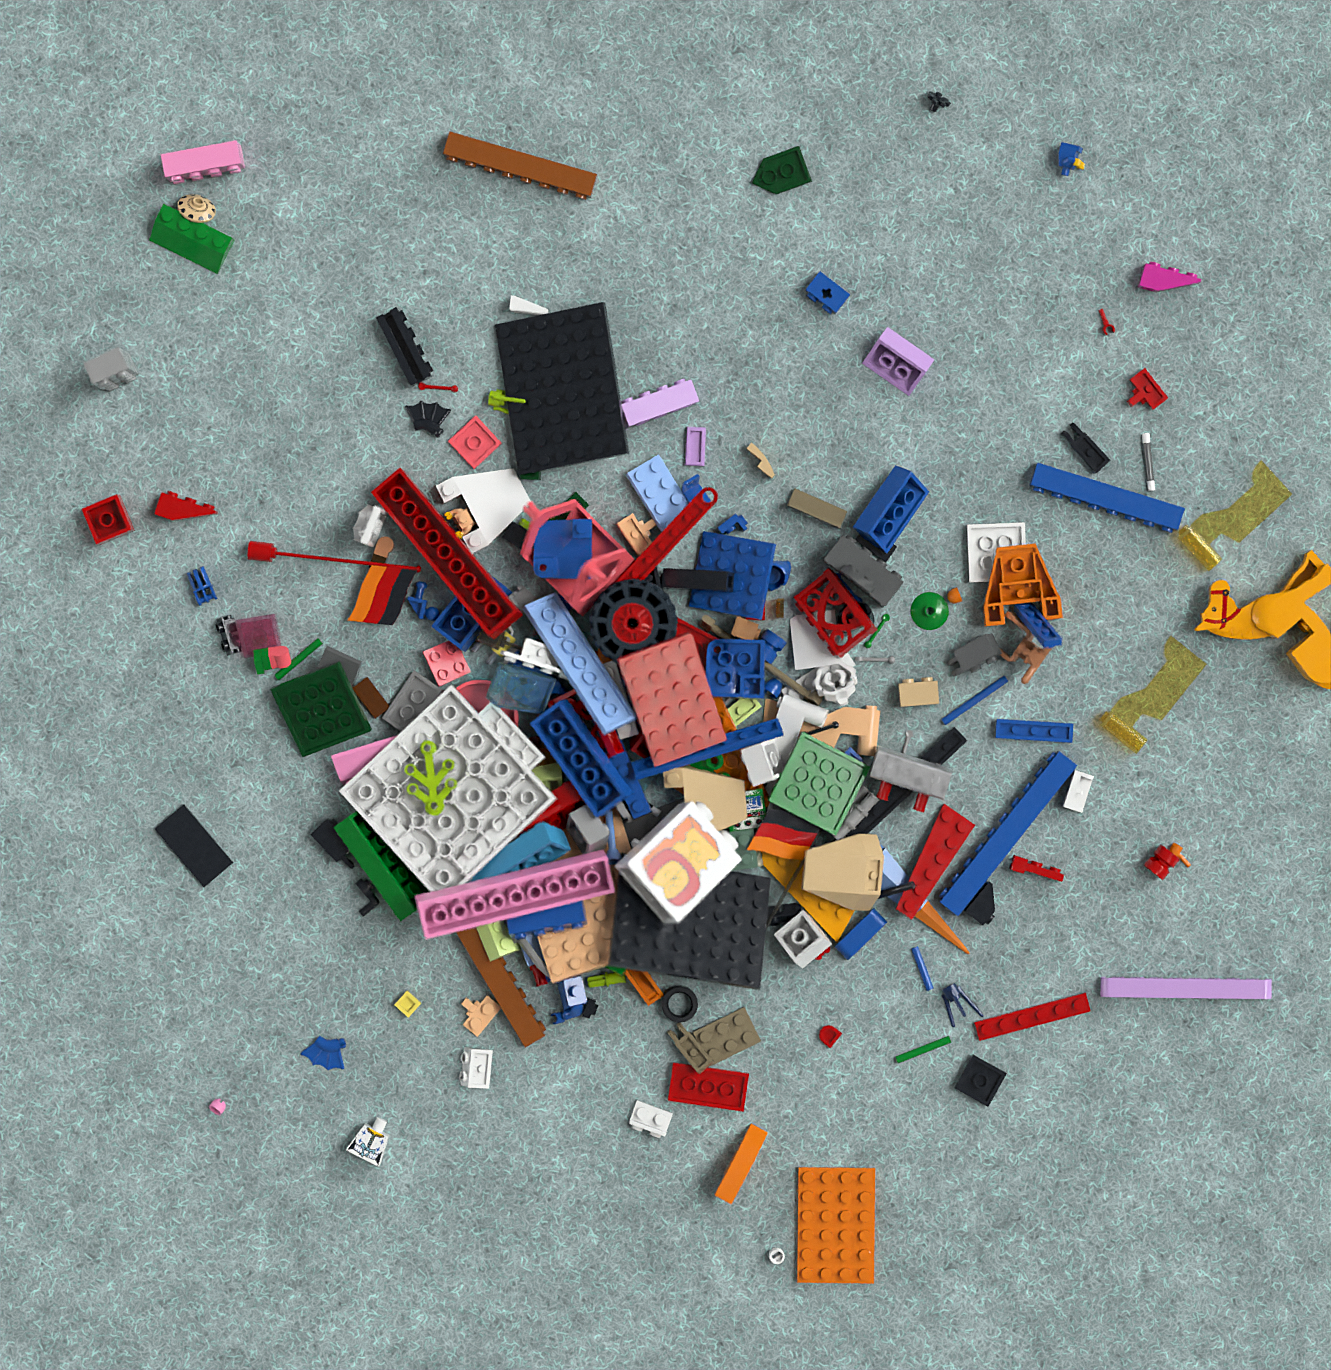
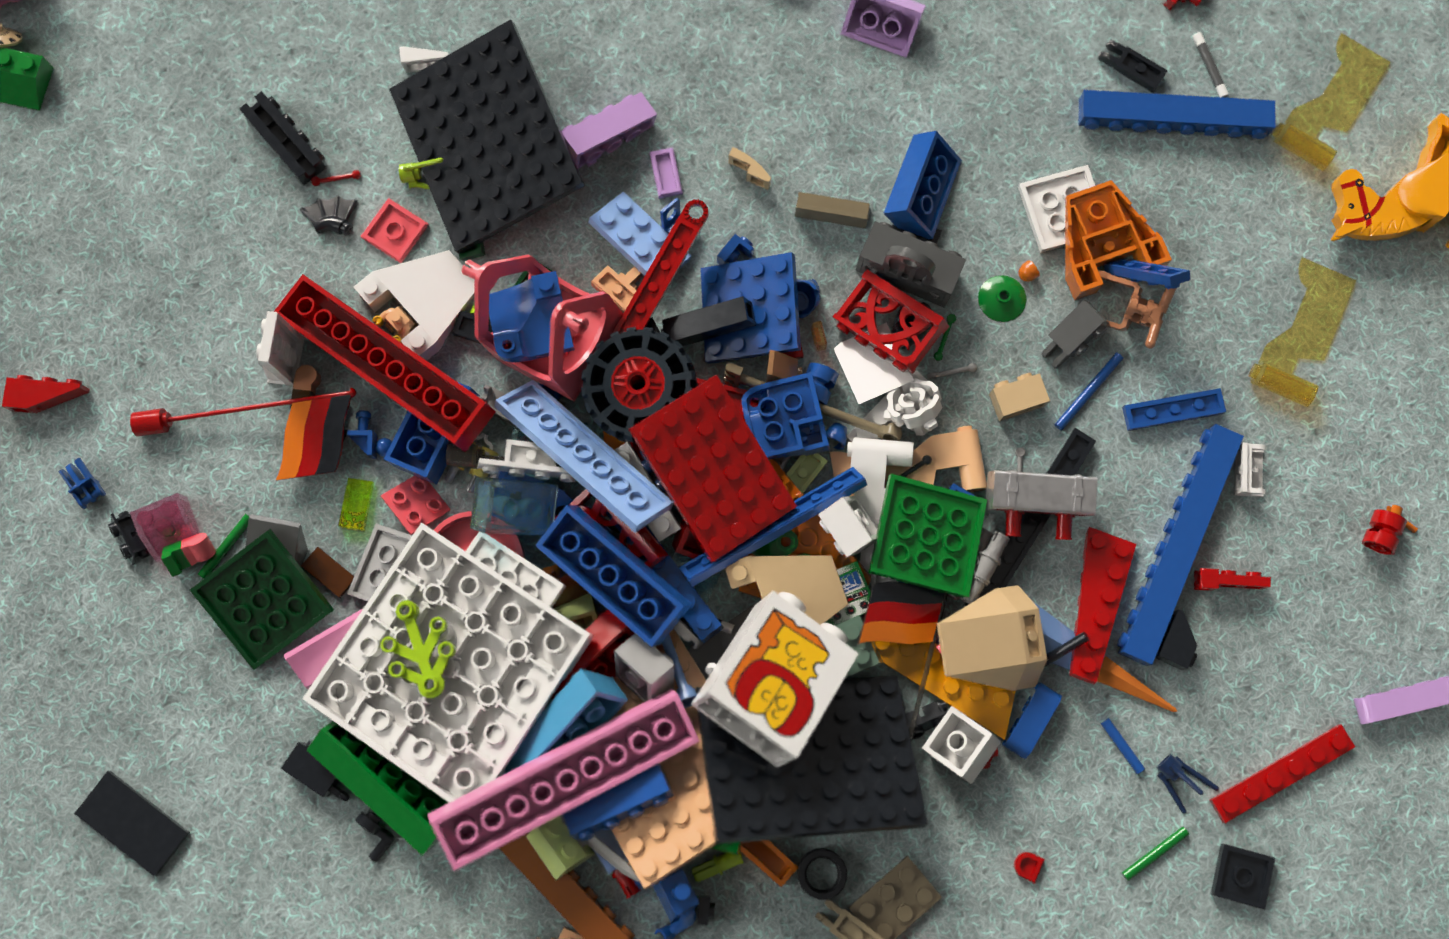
camera: 15 degrees left, 10 degrees down
(401, 651) = (356, 504): none -> clear neon green tile

